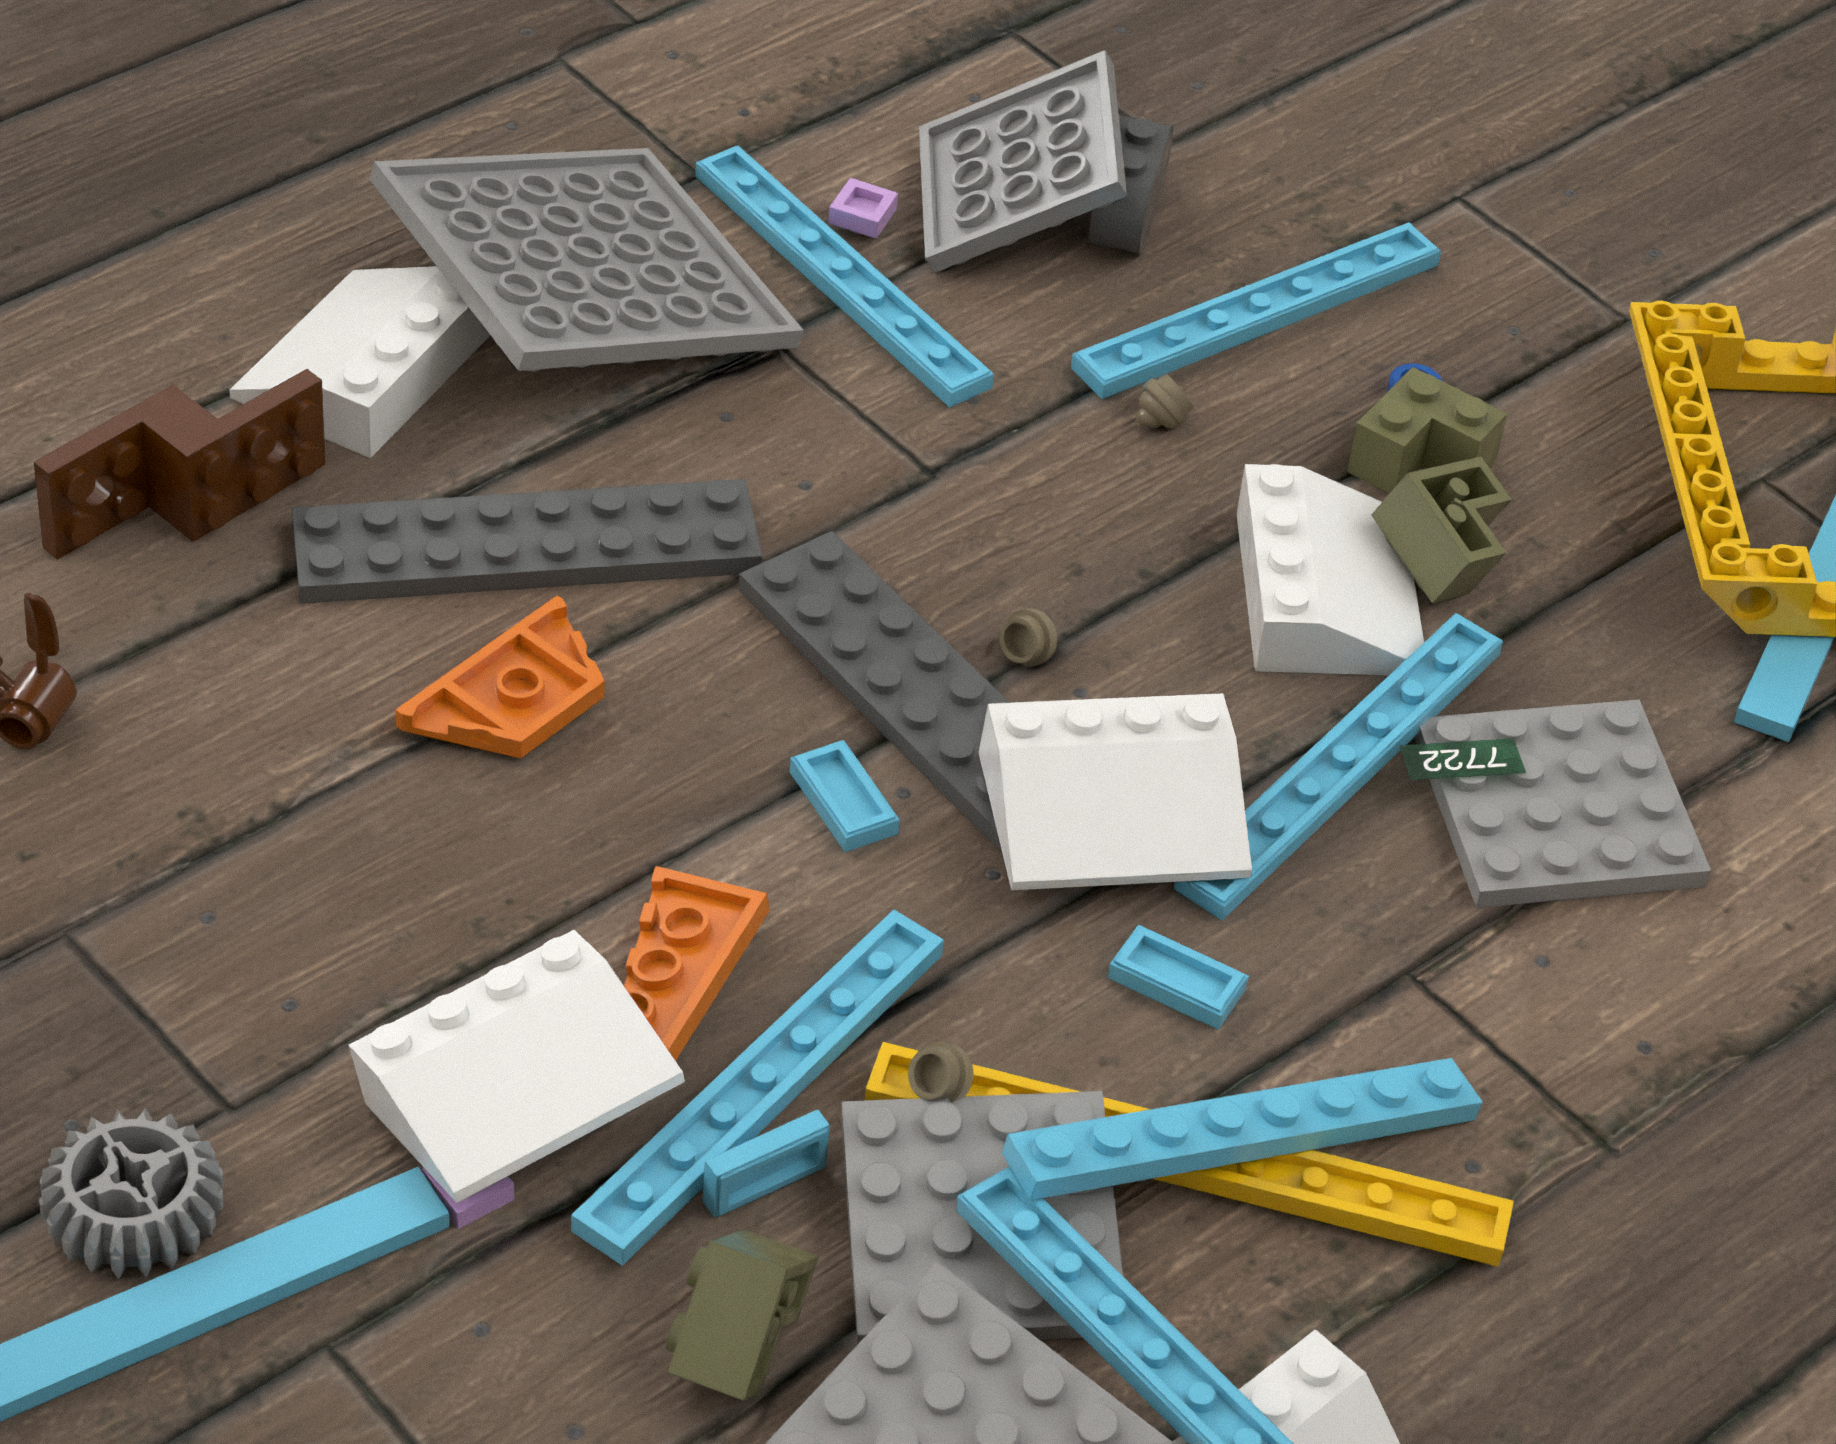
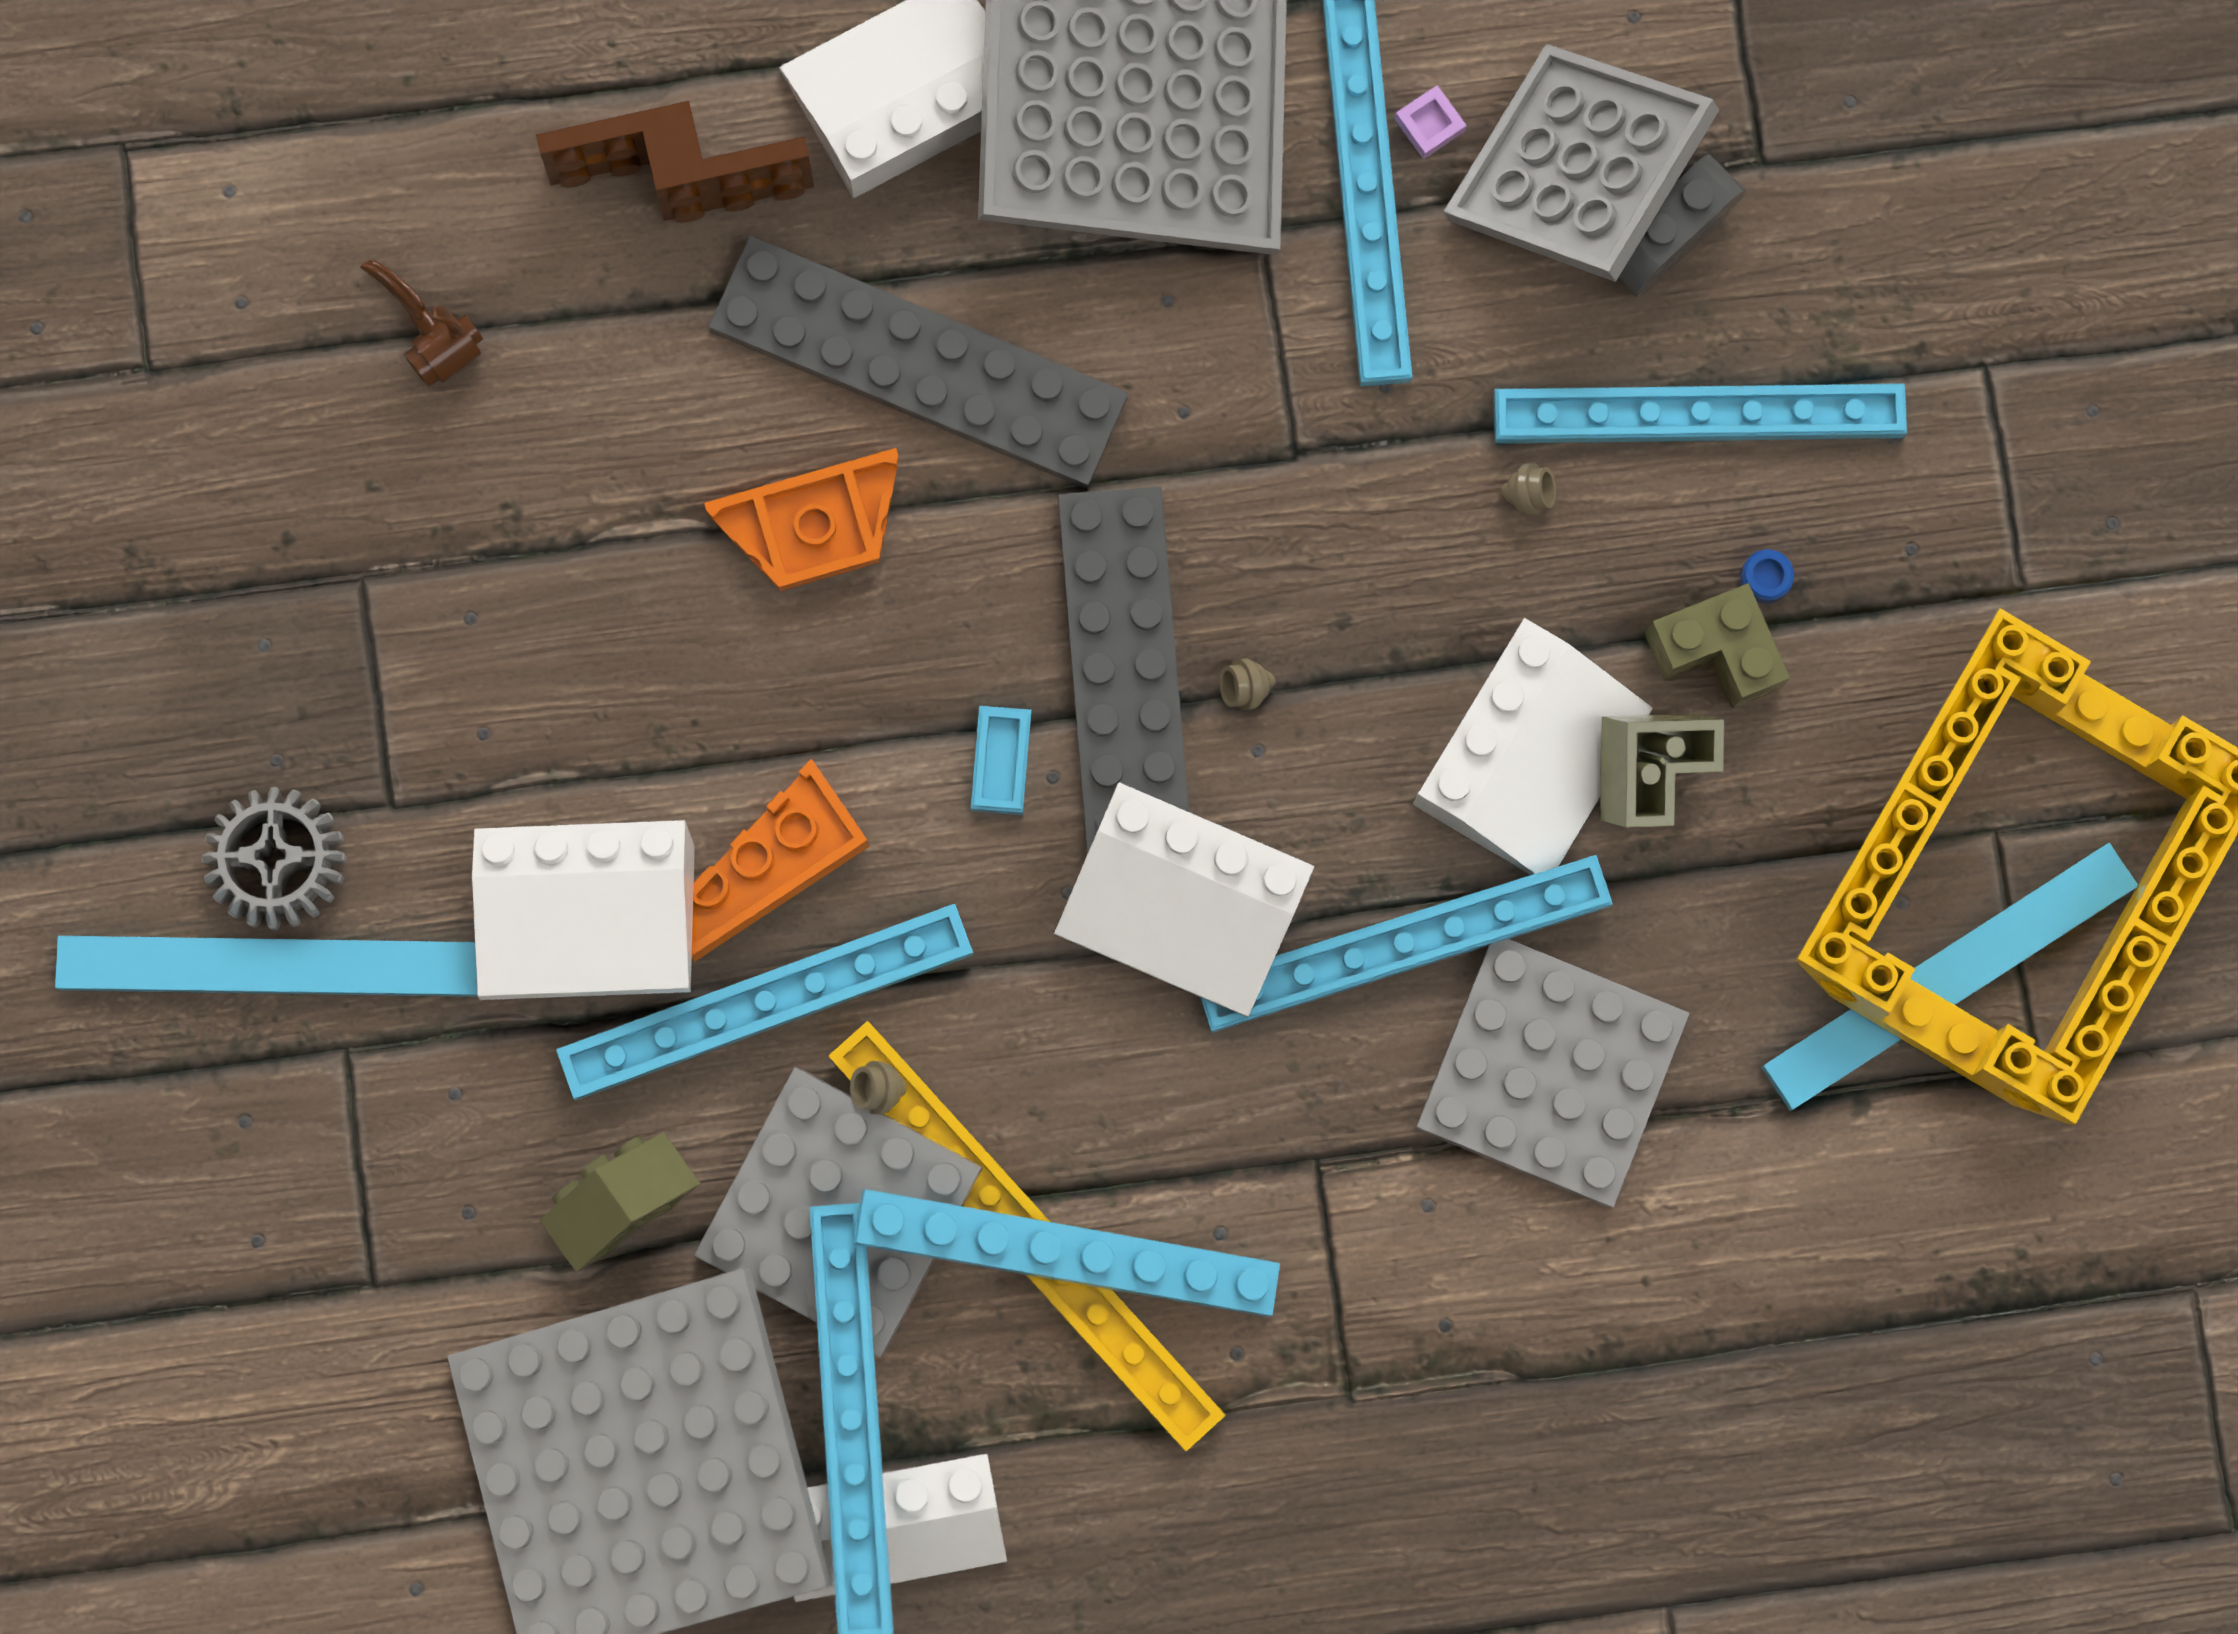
camera: 30 degrees right, 35 degrees up
(765, 1163) = (719, 1079): medium azure tile -> none
(1178, 977) = (1136, 1071): medium azure tile -> none
(1462, 759) = (1492, 1001): clear green sticker -> none

